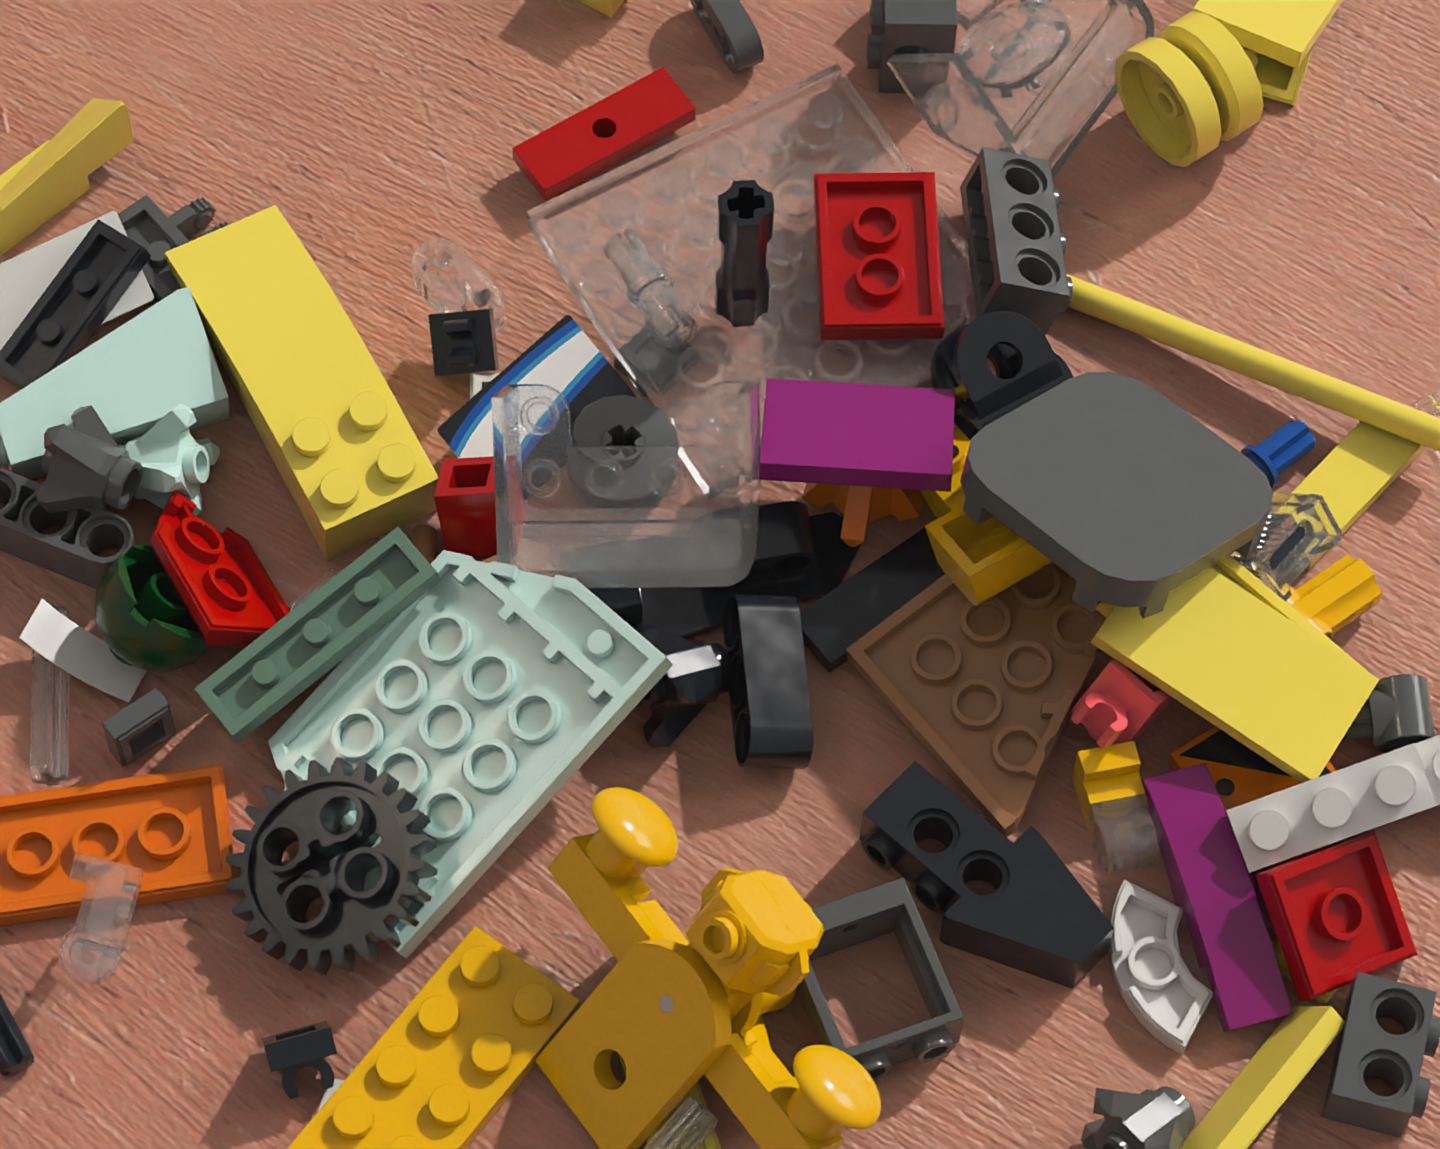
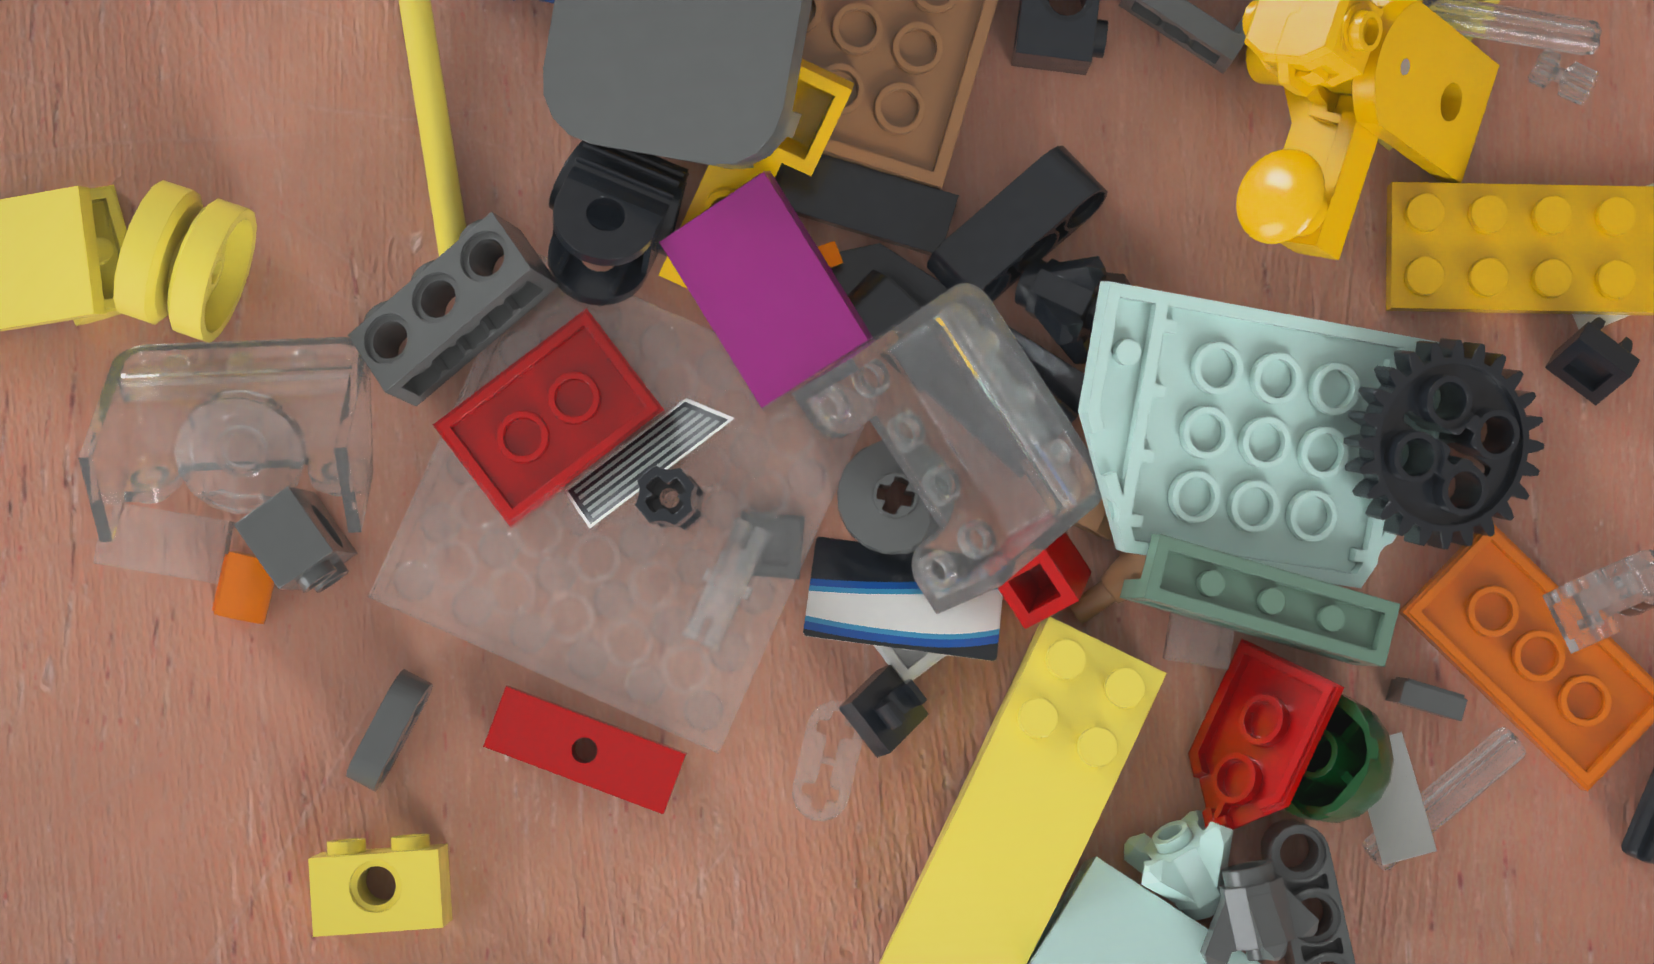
camera: 120 degrees left, 25 degrees up
(793, 293) = (659, 445): none -> sticker

